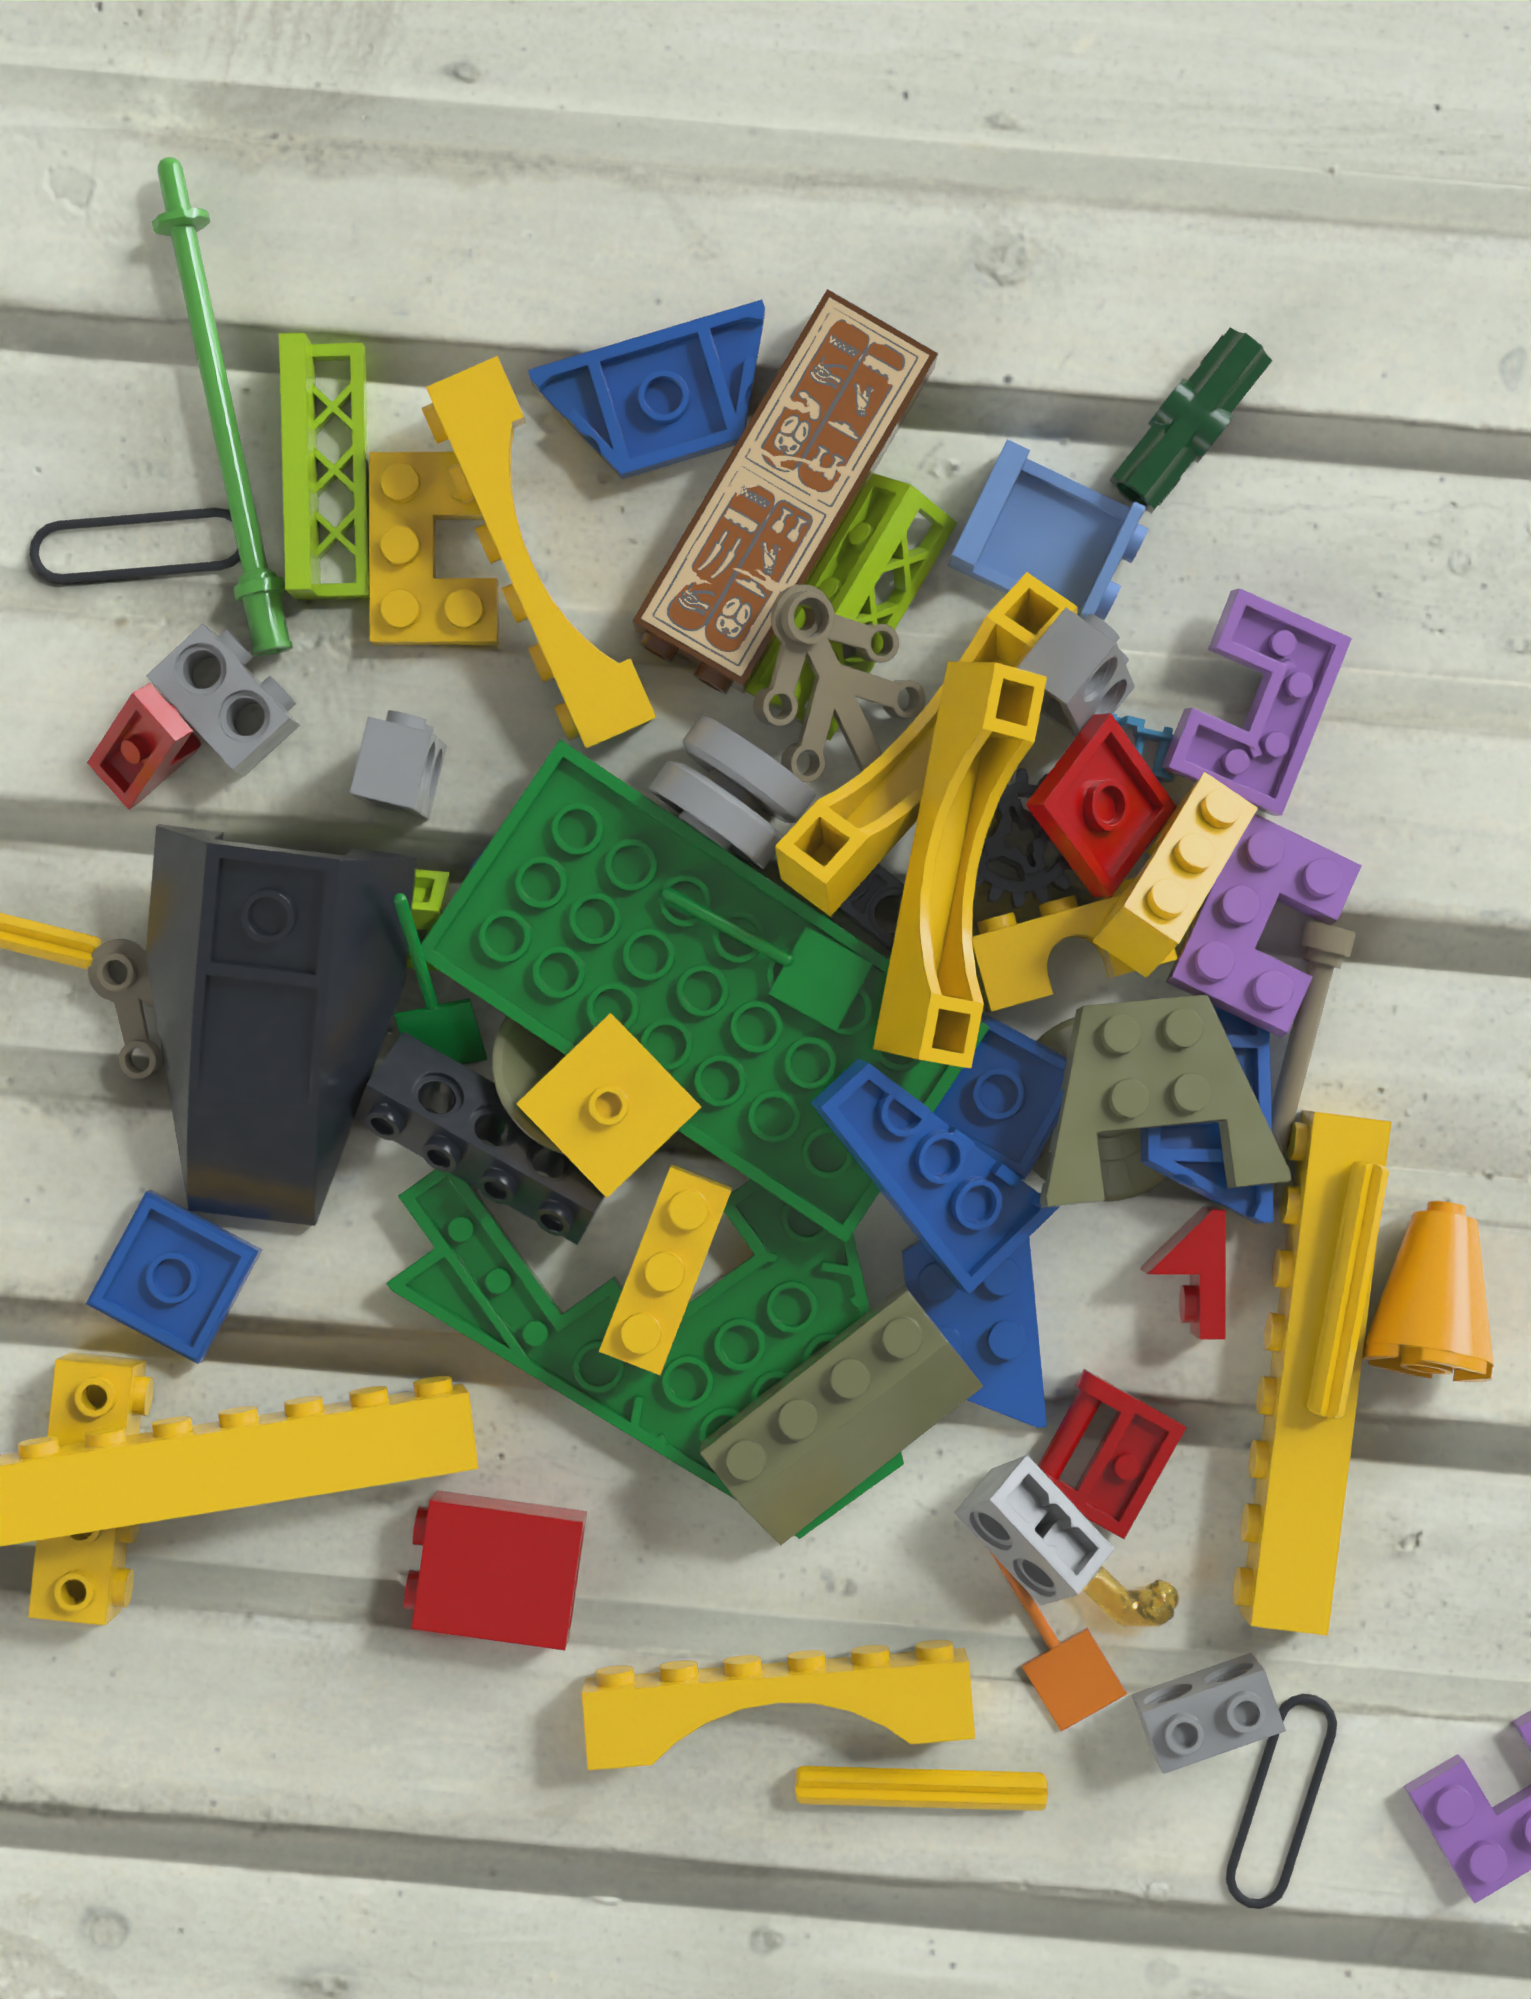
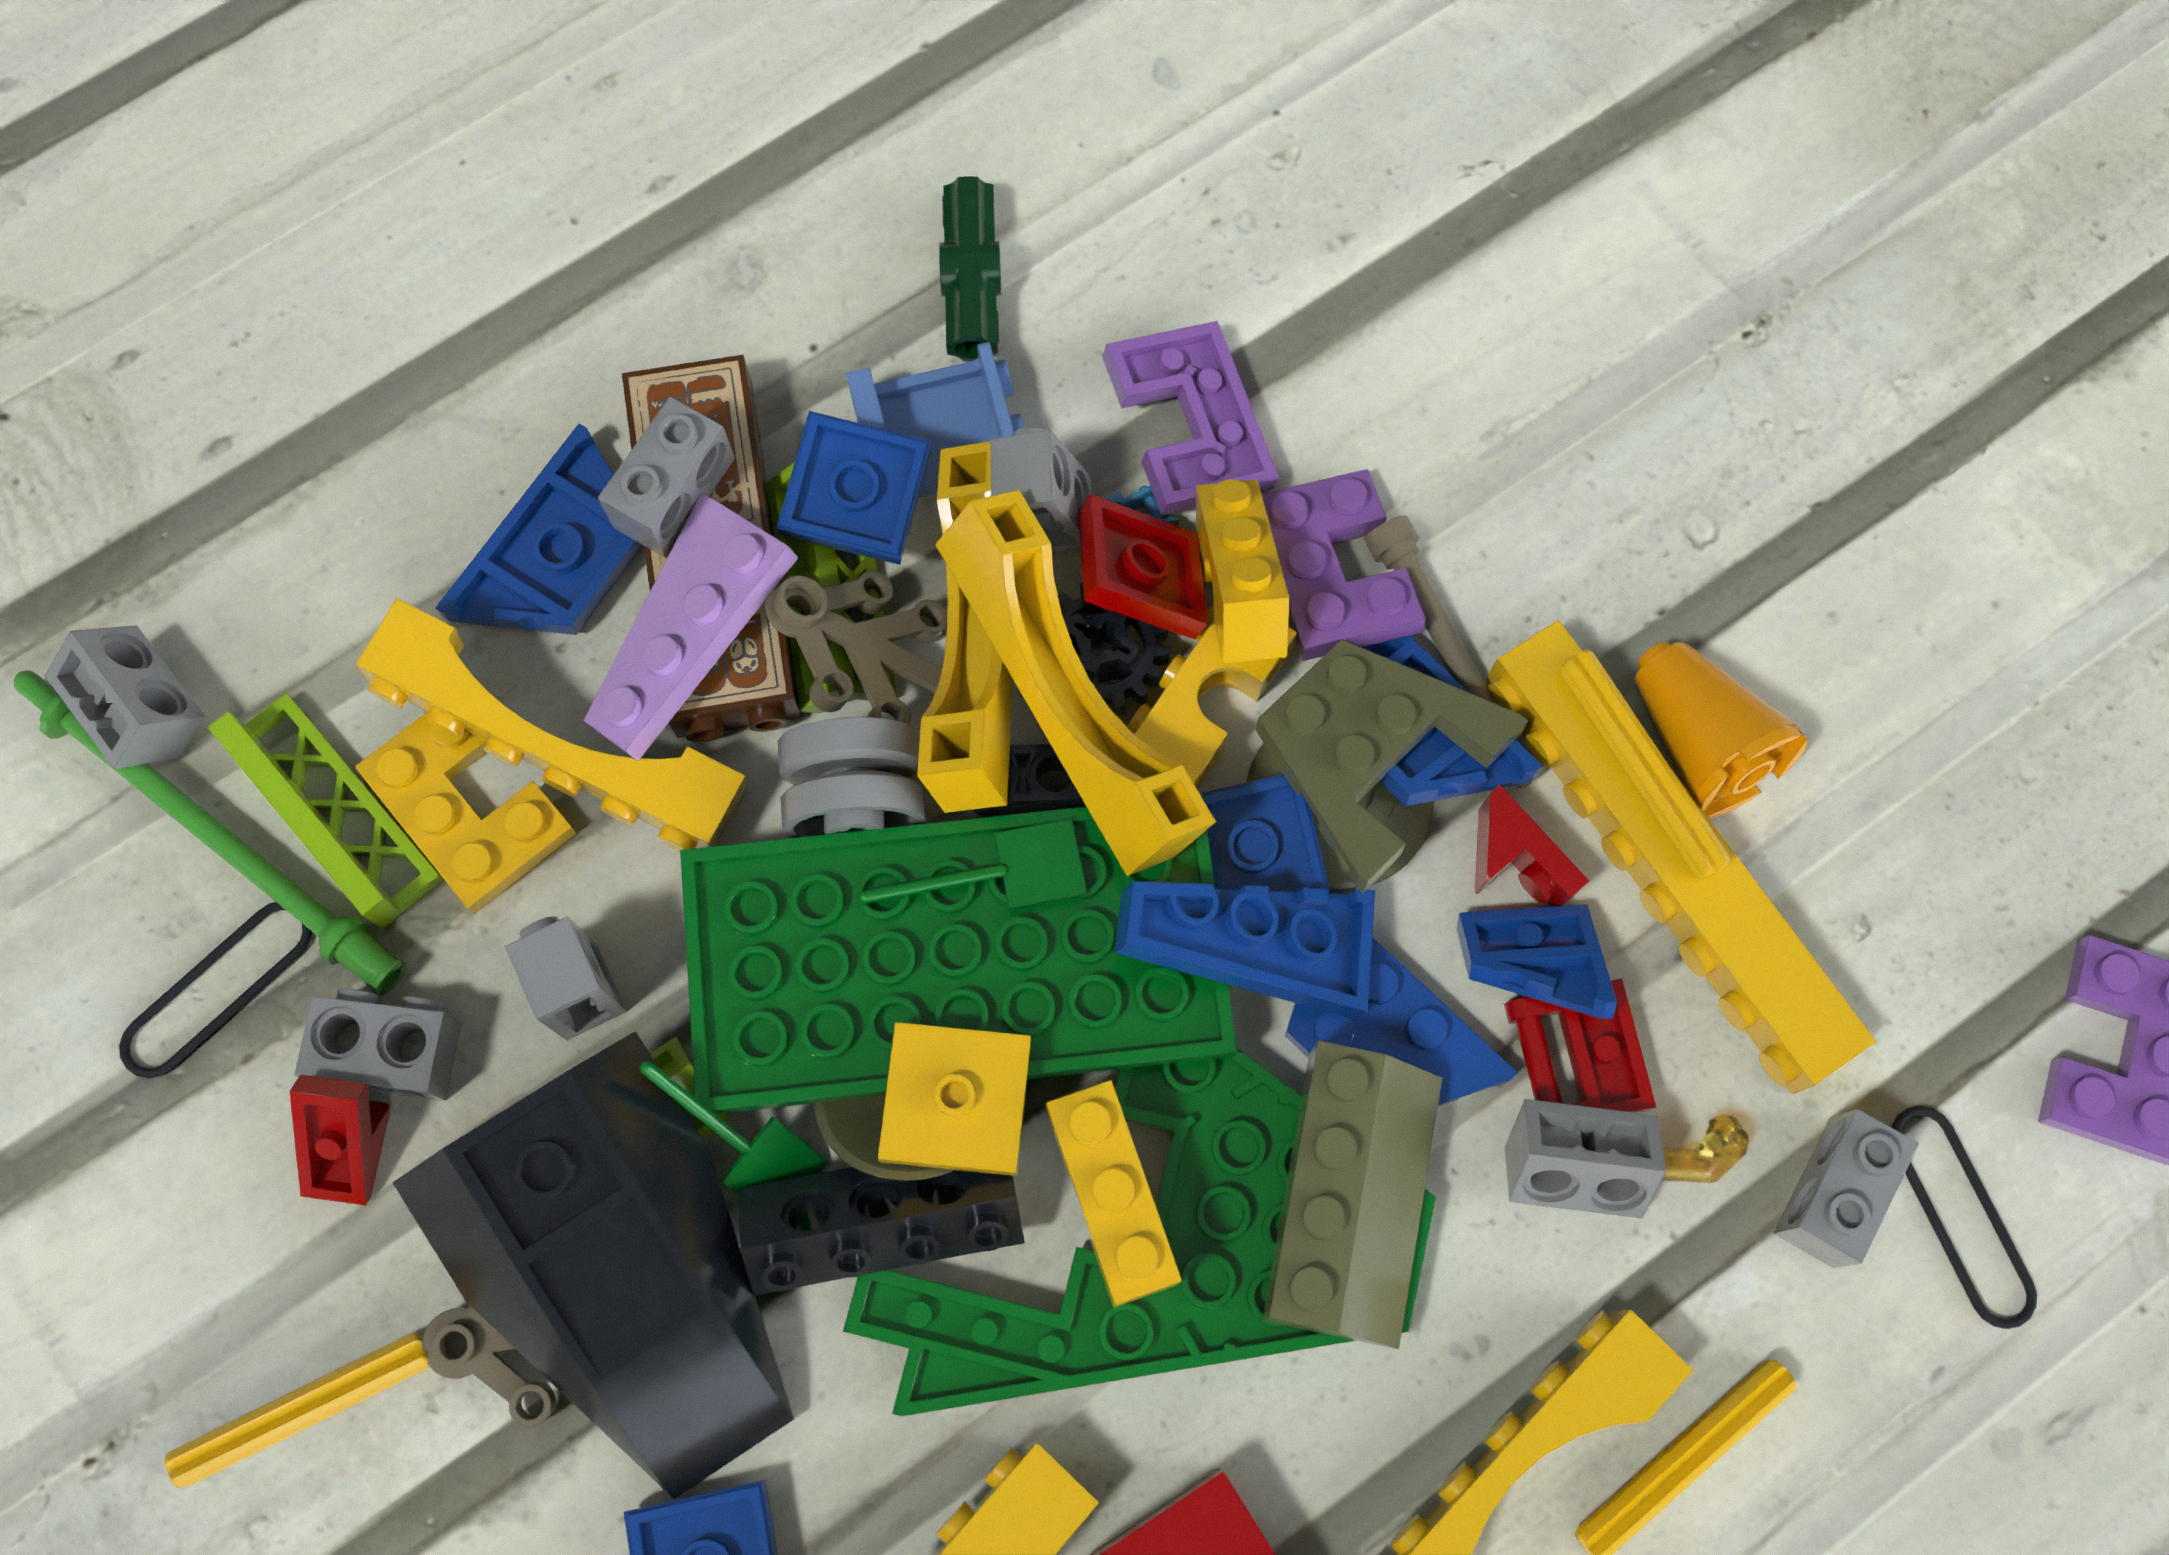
camera: 40 degrees left, 15 degrees down
(235, 250) = (124, 696): none -> light grey brick
(717, 556) = (689, 619): none -> lavender wing
(787, 422) = (665, 476): none -> light grey brick
(930, 549) = (854, 487): none -> blue plate
(1072, 1674) = (1714, 1257): orange piece -> none
(1140, 1358) = (1539, 955): none -> blue wing

